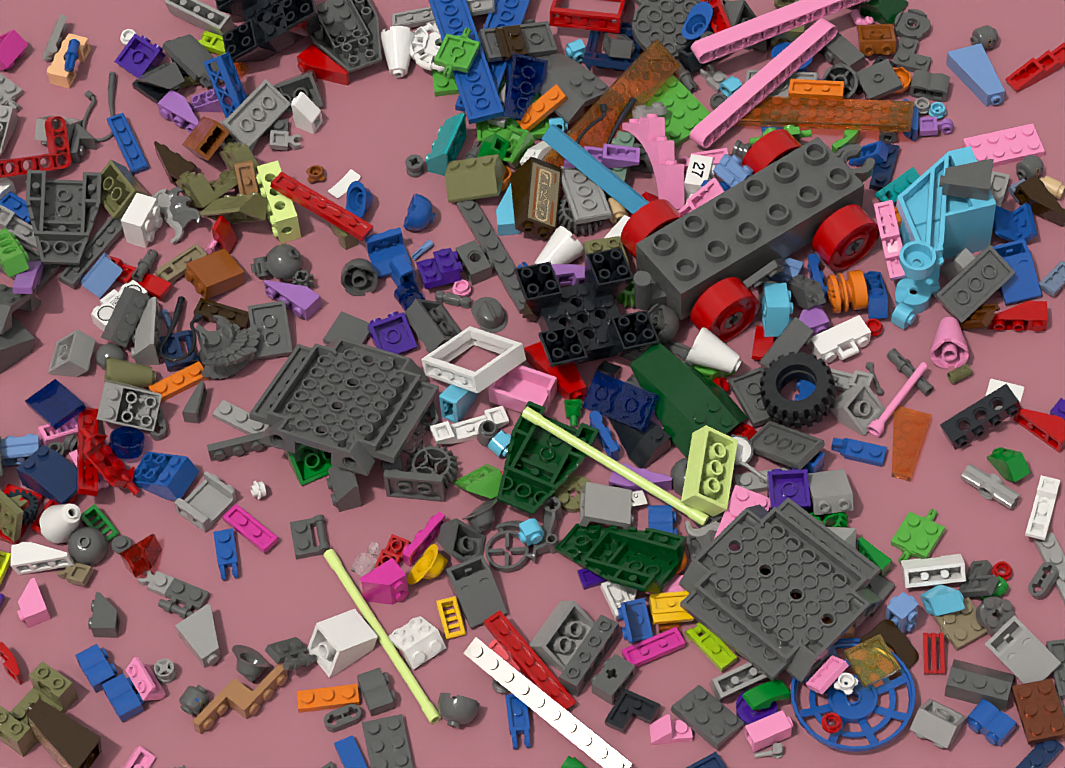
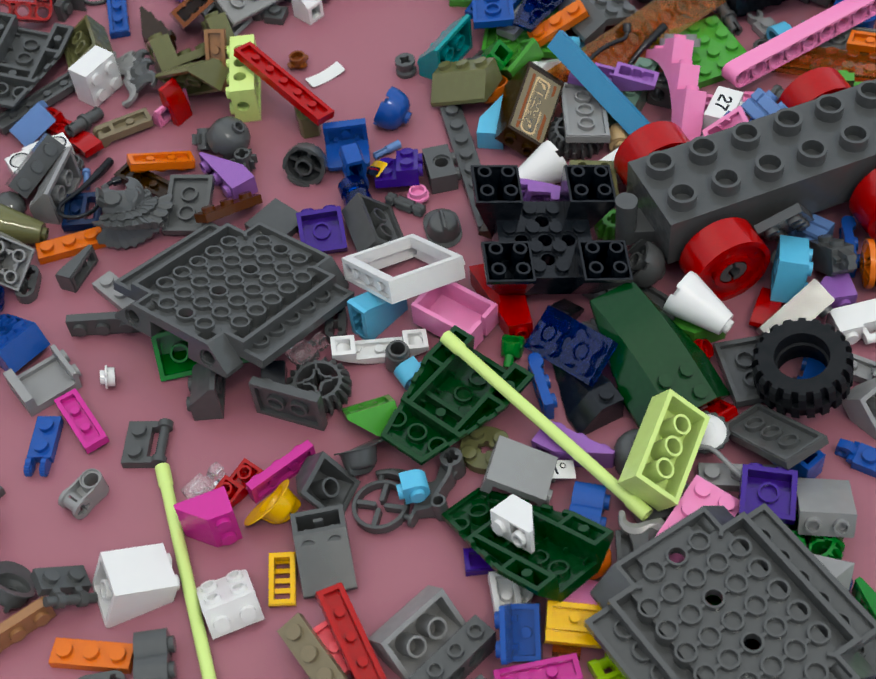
camera: 15 degrees right, 5 degrees down
(214, 274) = (149, 135): dark orange brick -> none
(231, 293) = (160, 161): none -> orange plate
(274, 587) = (84, 493): none -> light grey piece
(280, 140) = (273, 24): light grey plate -> none
(307, 328) = (228, 207): none -> reddish brown plate
(358, 199) = (333, 88): blue piece -> none
(422, 271) = (376, 168): none -> sticker
(613, 544) = (514, 522): none -> white slope

